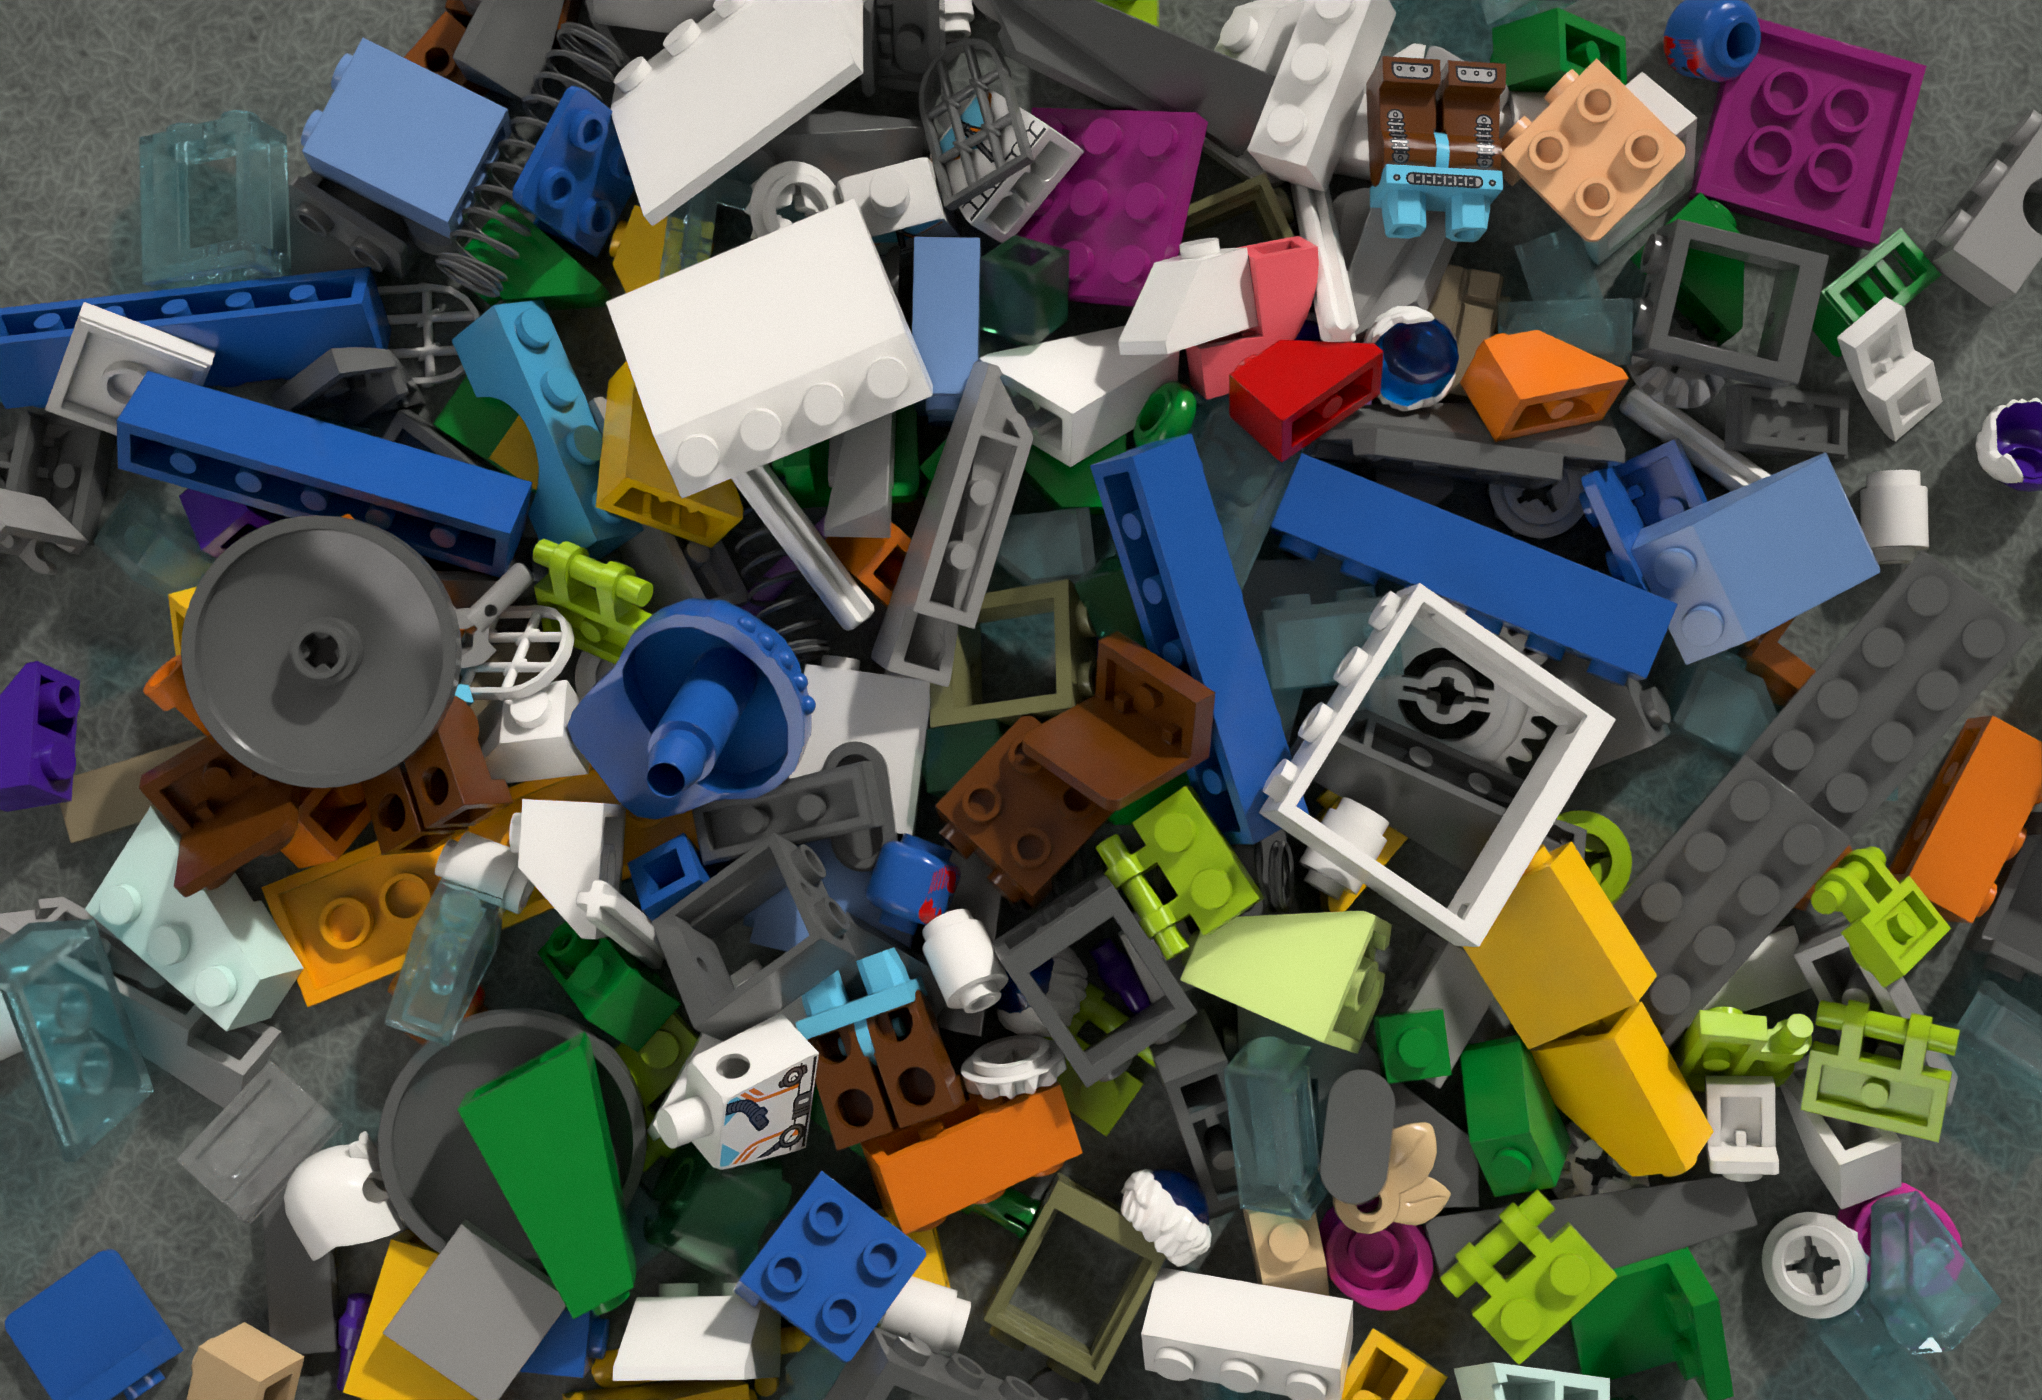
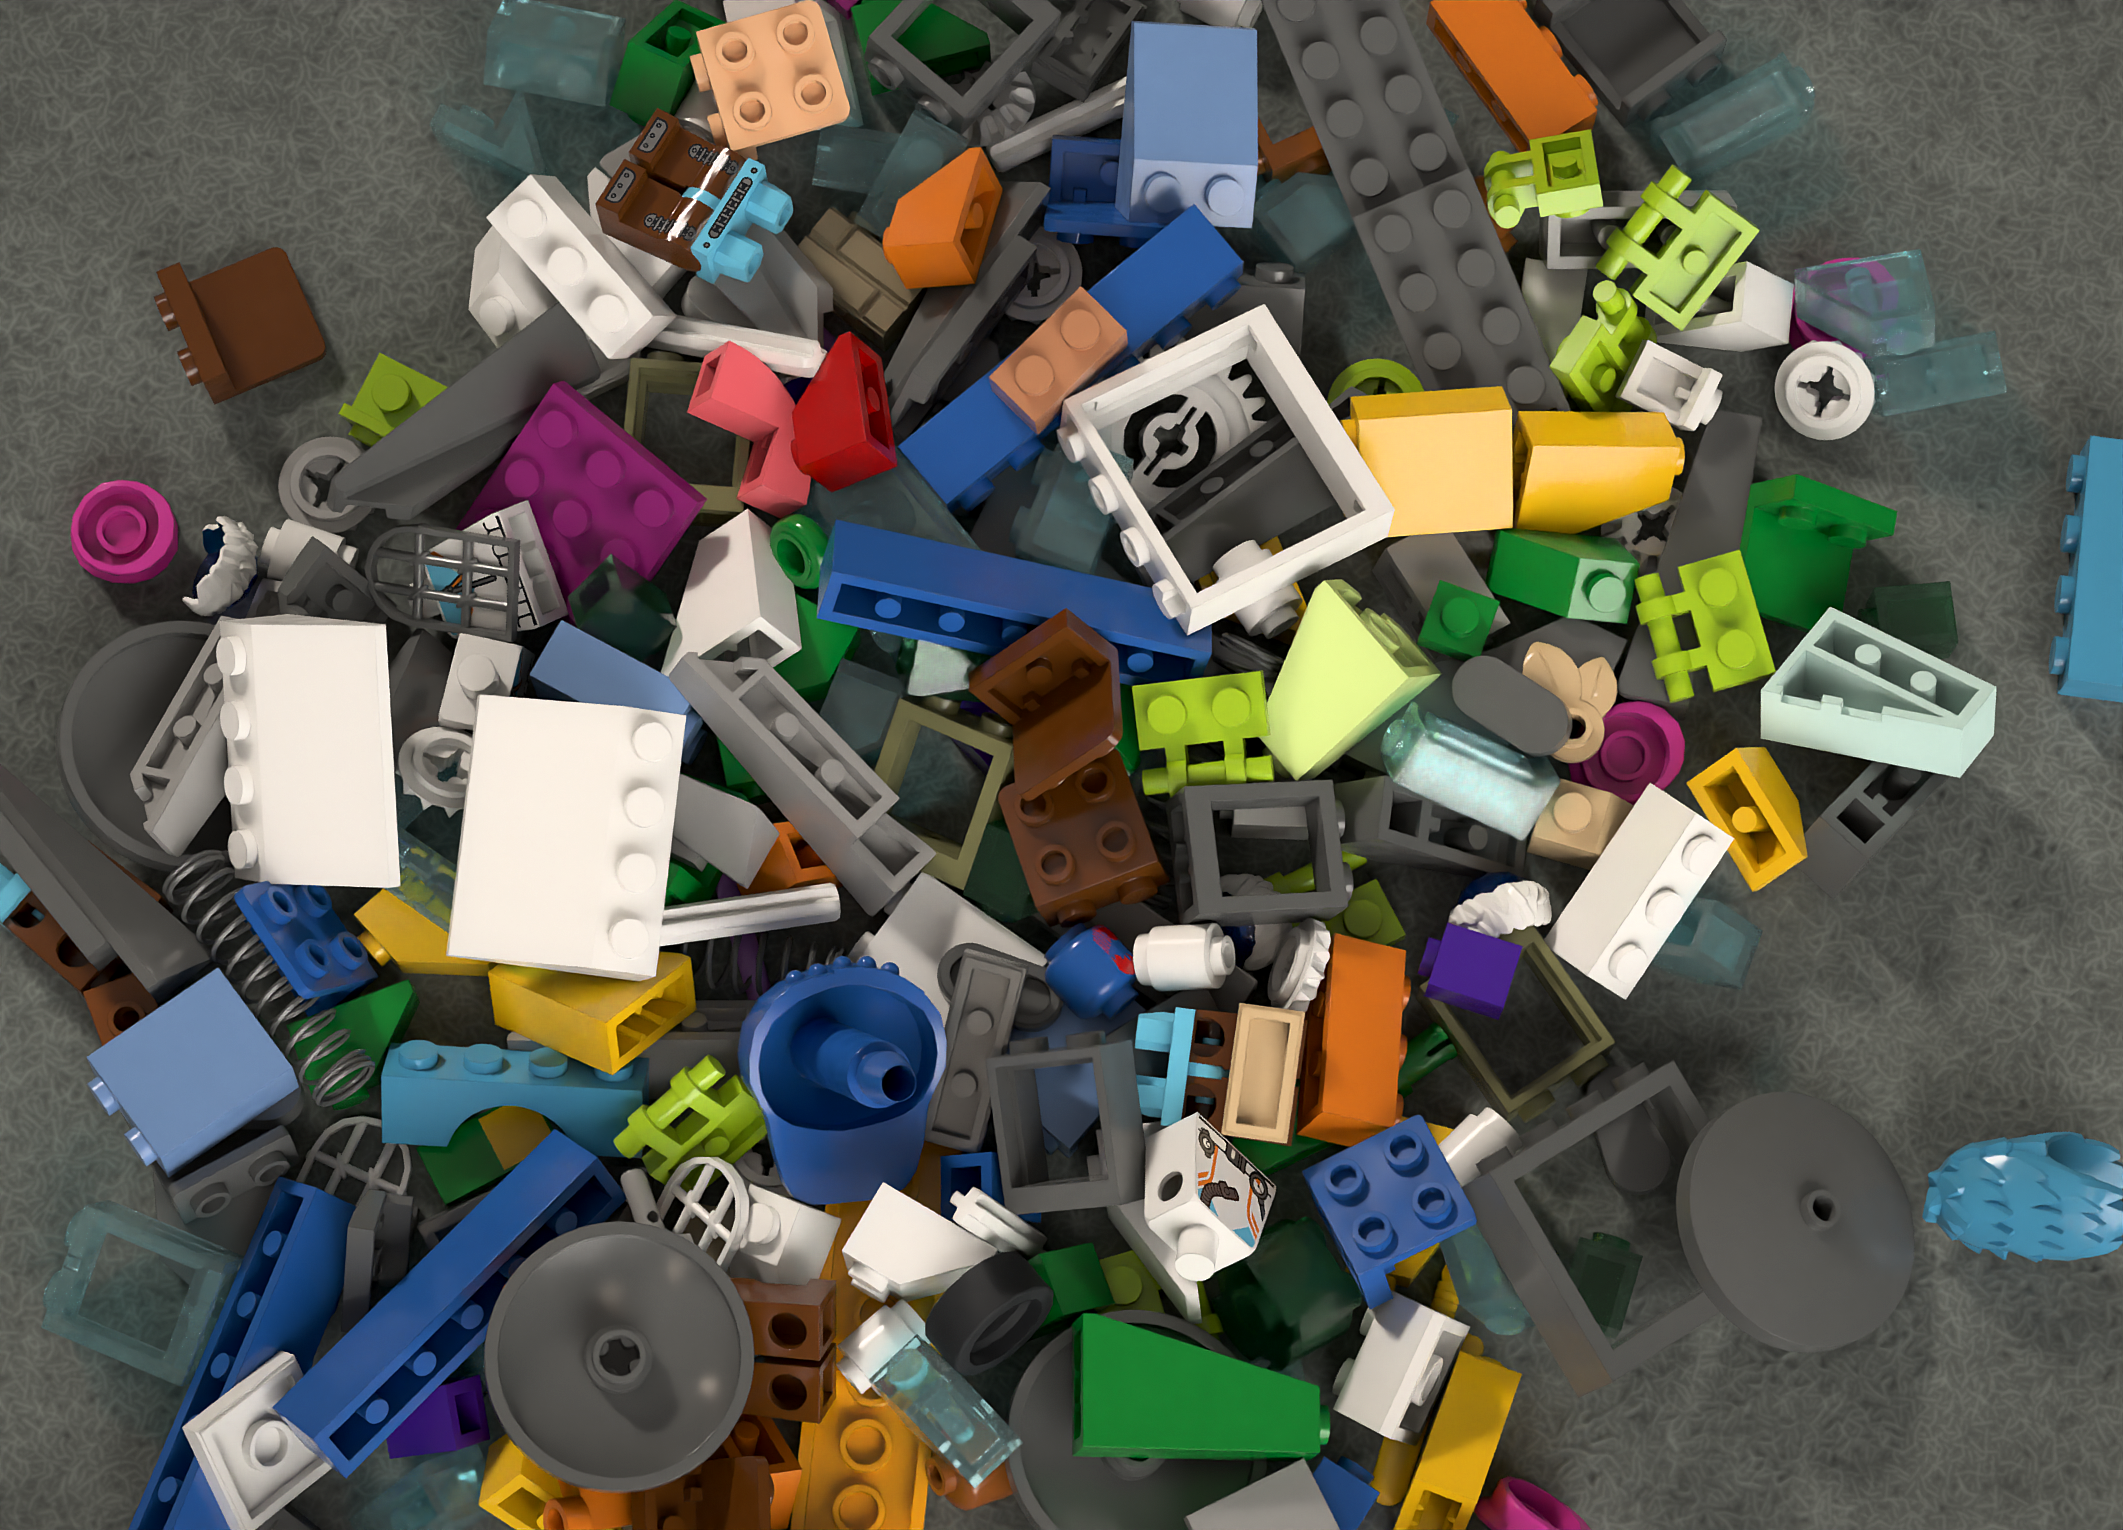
camera: 60 degrees left, 10 degrees down
(543, 957) = (989, 1313): none -> black tyre
(885, 1094) = (1263, 1073): none -> tan tile
(1090, 1225) = (1470, 970): none -> dark purple brick
(1120, 975) = (1269, 851): dark purple piece -> none
(1191, 300) = (715, 469): white slope -> none
(1417, 357) = (868, 308): clear blue hair -> none
(1457, 558) = (1058, 360): none -> nougat brick

